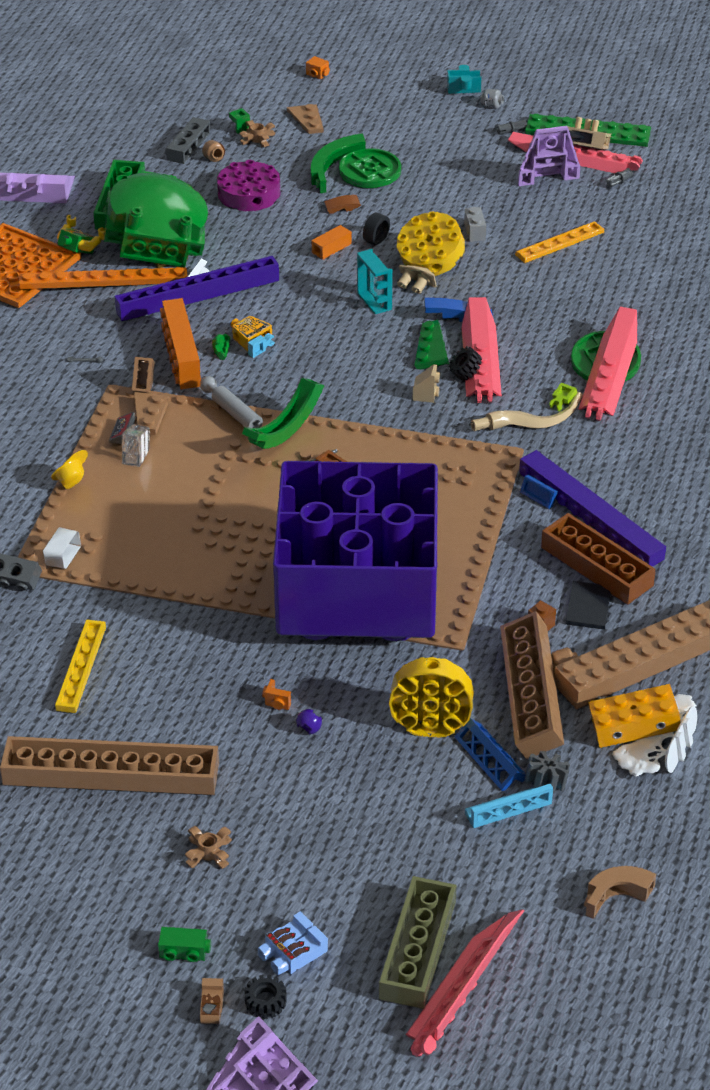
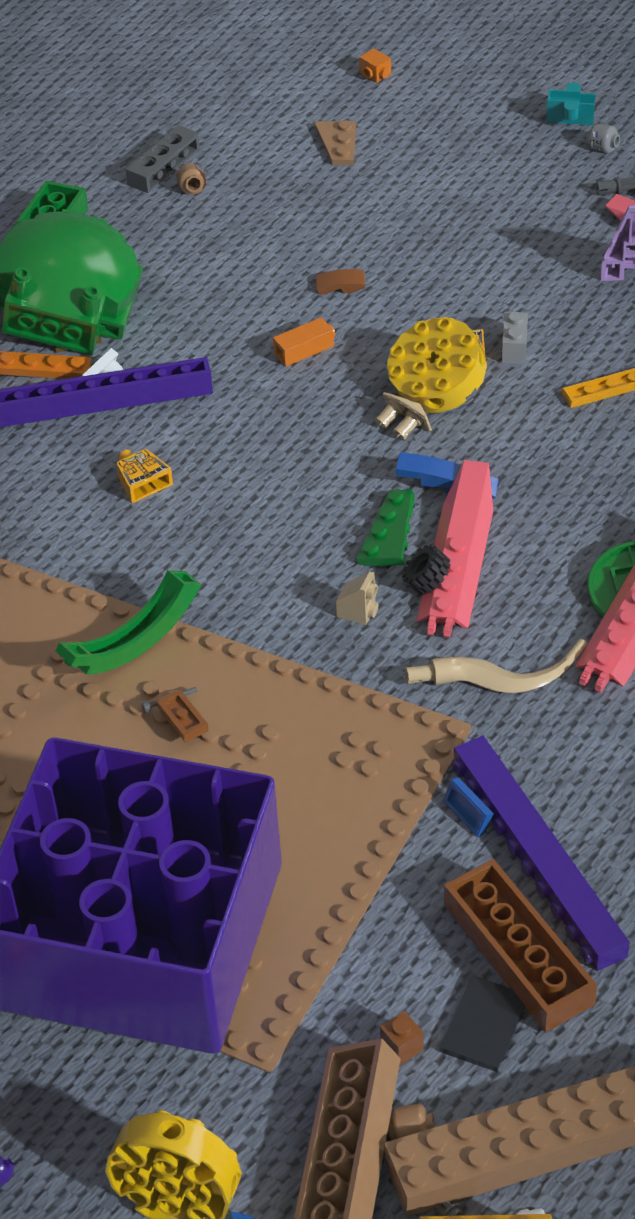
camera: 15 degrees right, 5 degrees up
(180, 344) = (34, 483): orange brick -> none
(220, 345) = (94, 489): green plate -> none
(231, 403) = (71, 592): light grey piece -> none
(240, 118) = (242, 136): green panel -> none
(248, 185) = (218, 239): magenta brick -> none
(257, 133) = (260, 158): medium nougat pin -> none
(259, 344) = (147, 496): medium azure plate -> none
(332, 153) = (348, 201): green arch -> none
(370, 168) = (397, 229): green plate -> none
(374, 282) = (334, 418): teal window -> none
(376, 228) = (363, 322): black tyre -> none
(563, 394) = (556, 641): lime plate -> none

